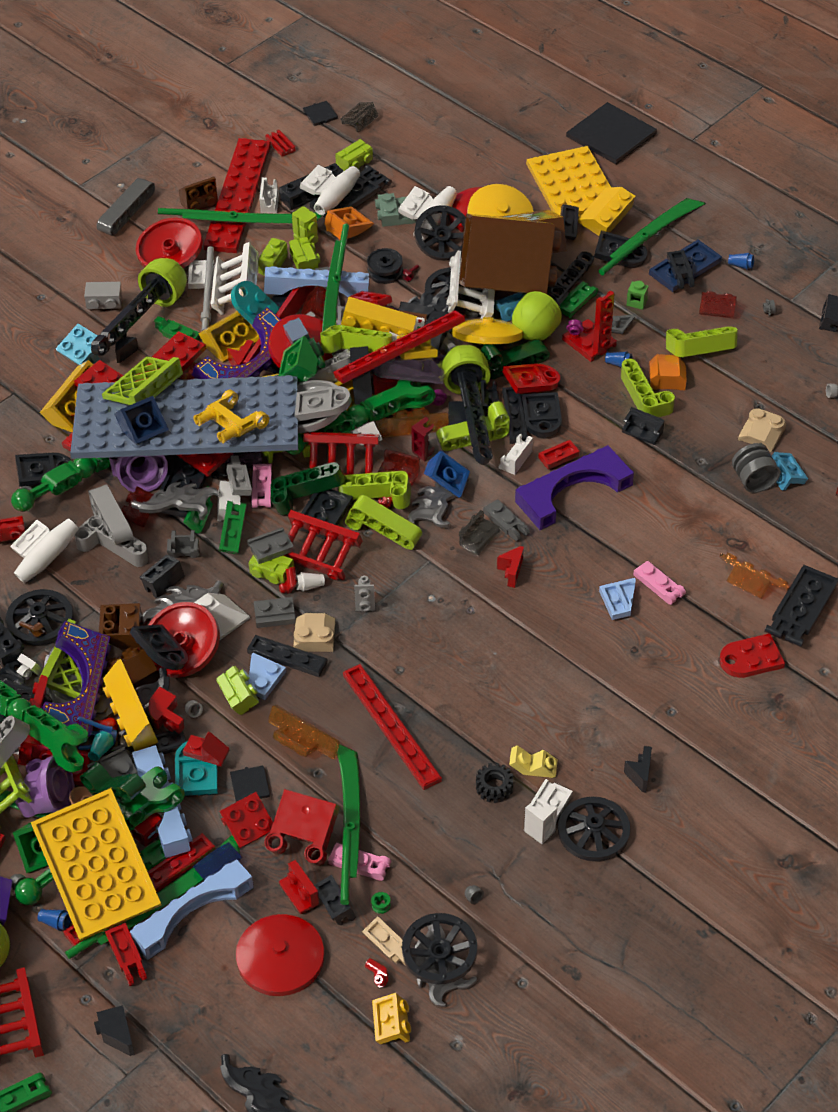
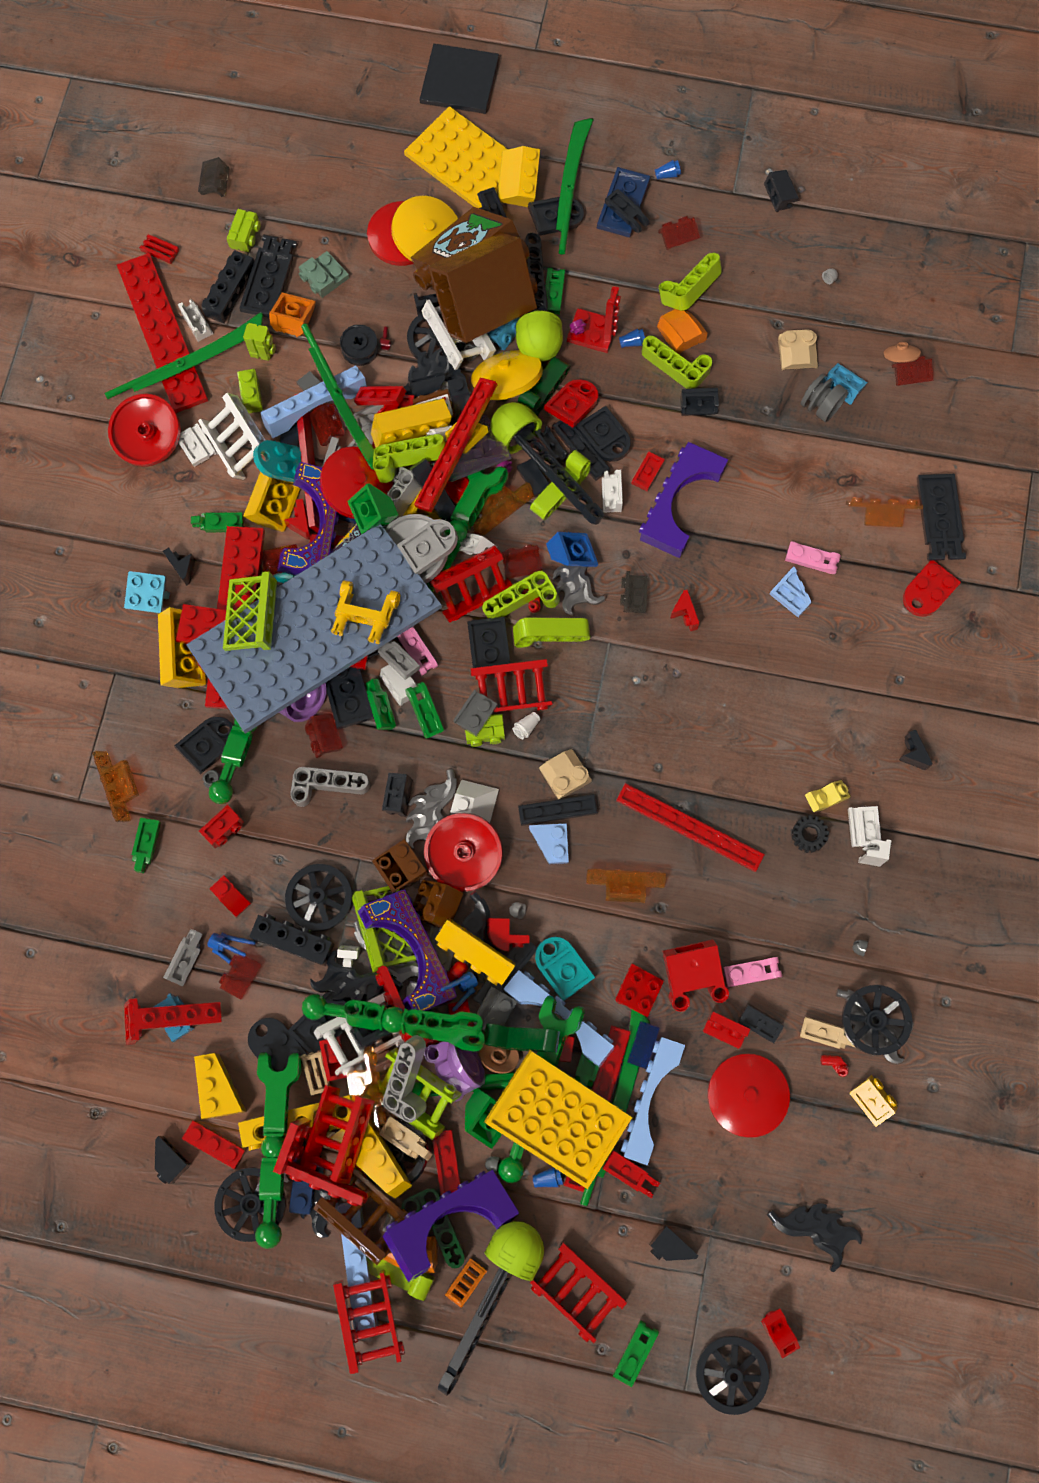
camera: 30 degrees left, 25 degrees up
(36, 630) = (330, 915): reddish brown hand -> none
(41, 547) = (270, 828): white plate -> none
(101, 744) = (473, 999): teal cone -> none
(103, 295) = (123, 521): light grey brick -> none
(106, 507) = (321, 768): light grey beam -> none
(125, 206) = (66, 404): dark grey beam -> none
(141, 420) = (286, 661): dark blue slope -> none
(160, 646) = (458, 874): black plate -> none
(161, 284) = (171, 478): black piece -> none
(183, 498) = (360, 707): flat silver piece -> none
(183, 545) = (394, 752): dark grey piece -> none
(199, 194) = (129, 355): reddish brown slope -> none
(206, 315) = (233, 490): light grey bar -> none
(207, 750) = (562, 947): red slope -> none
(238, 690) = (545, 872): lime brick -> none
(249, 781) = (613, 952): black piece -> none
(274, 612) = (517, 772): dark grey plate -> none
(291, 581) = (512, 736): red arm -> none
(294, 330) = (351, 478): sand blue brick -> none
(304, 254) = (276, 372): lime brick -> none
(304, 483) = (460, 631): dark green beam -> none
(318, 351) = (382, 486): dark green piece -> none
(320, 113) = (171, 192): black piece -> none
(330, 188) = (252, 283): white plate -> none
(351, 818) = (694, 901): green piece -> none
(364, 595) = (588, 715): light grey hinge -> none
(382, 908) = (798, 1003): green bush -> none
(420, 200) = (358, 259): white plate -> none
(420, 439) = (527, 524): dark red hinge -> none
(439, 230) = (390, 277): black wheel -> none
(503, 517) = (646, 565): dark grey hinge -> none
(594, 830) = (908, 830): black wheel -> none
(621, 323) = (602, 297): dark grey piece -> none
(637, 290) = (605, 254): bright green brick -> none
(769, 307) = (723, 211): dark grey plate -> none

